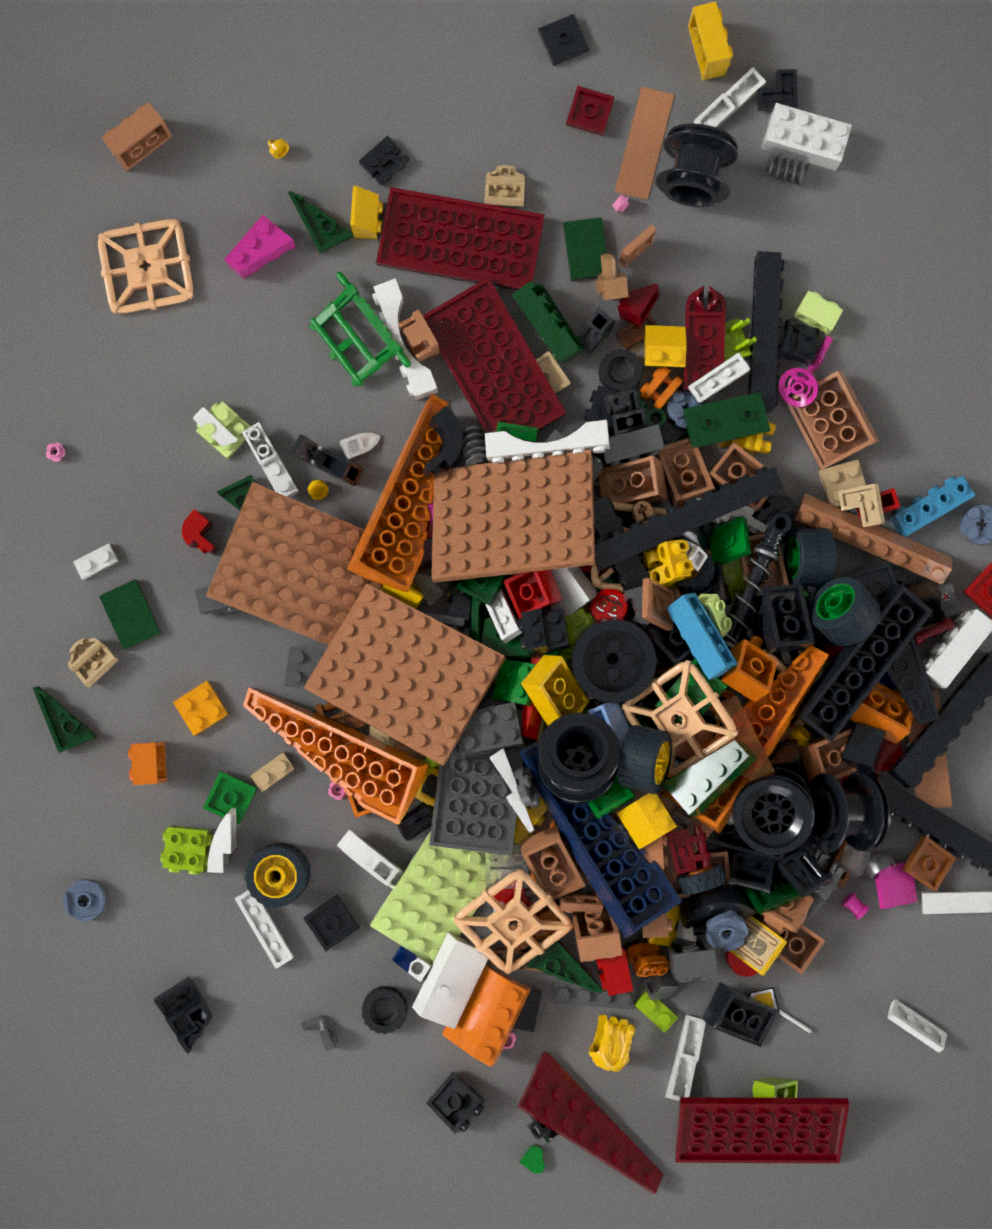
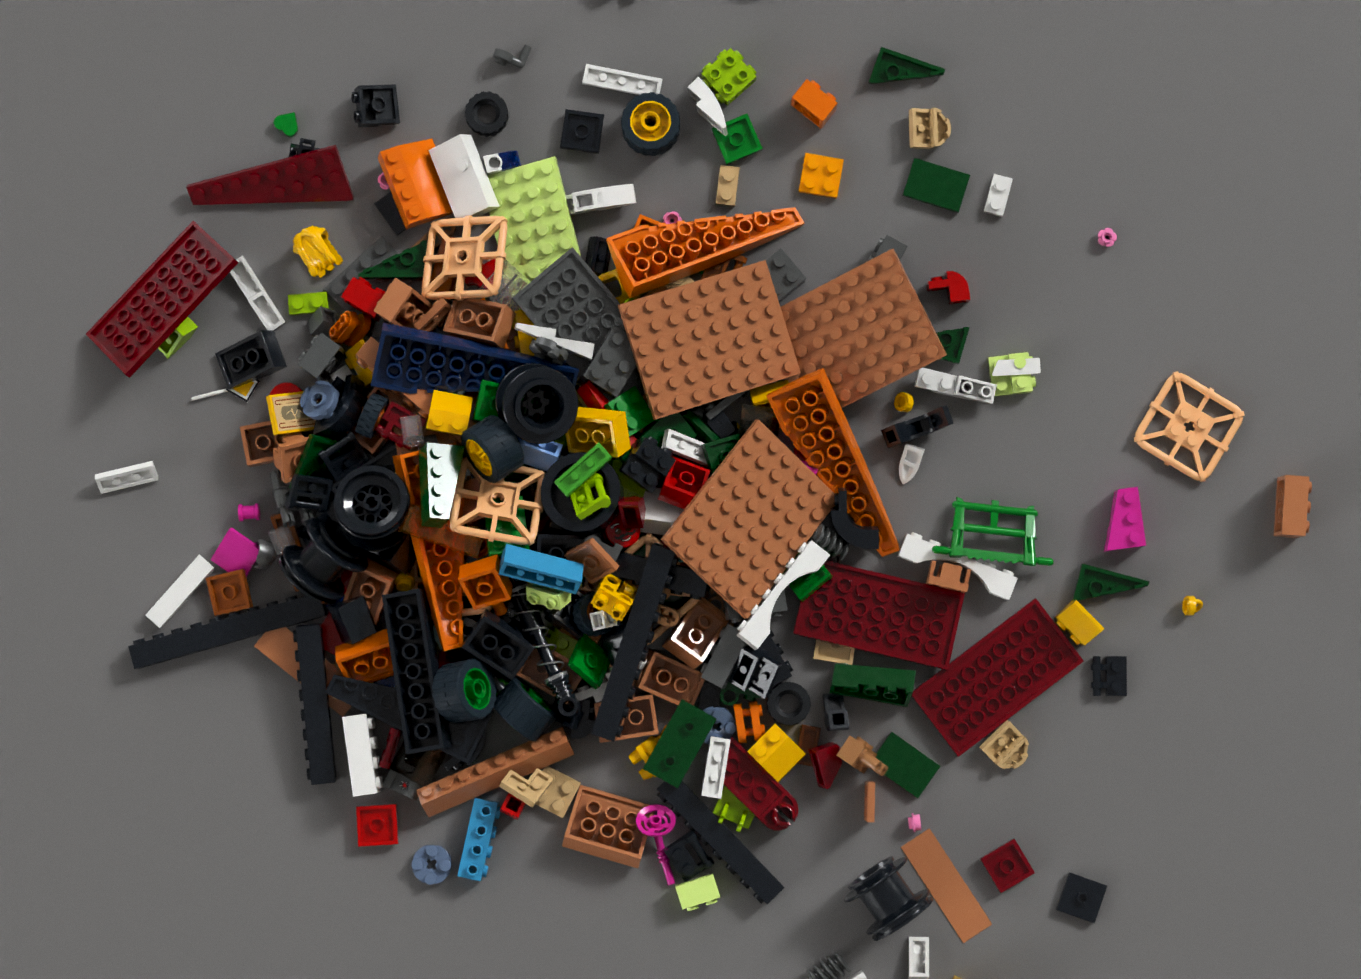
camera: 135 degrees right, 0 degrees up
(591, 608) = (632, 511): none -> dark red slope
(595, 674) = (583, 469): none -> bright green tile
(618, 652) = (583, 498): none -> lime plate
(686, 836) = (411, 430): none -> clear brick

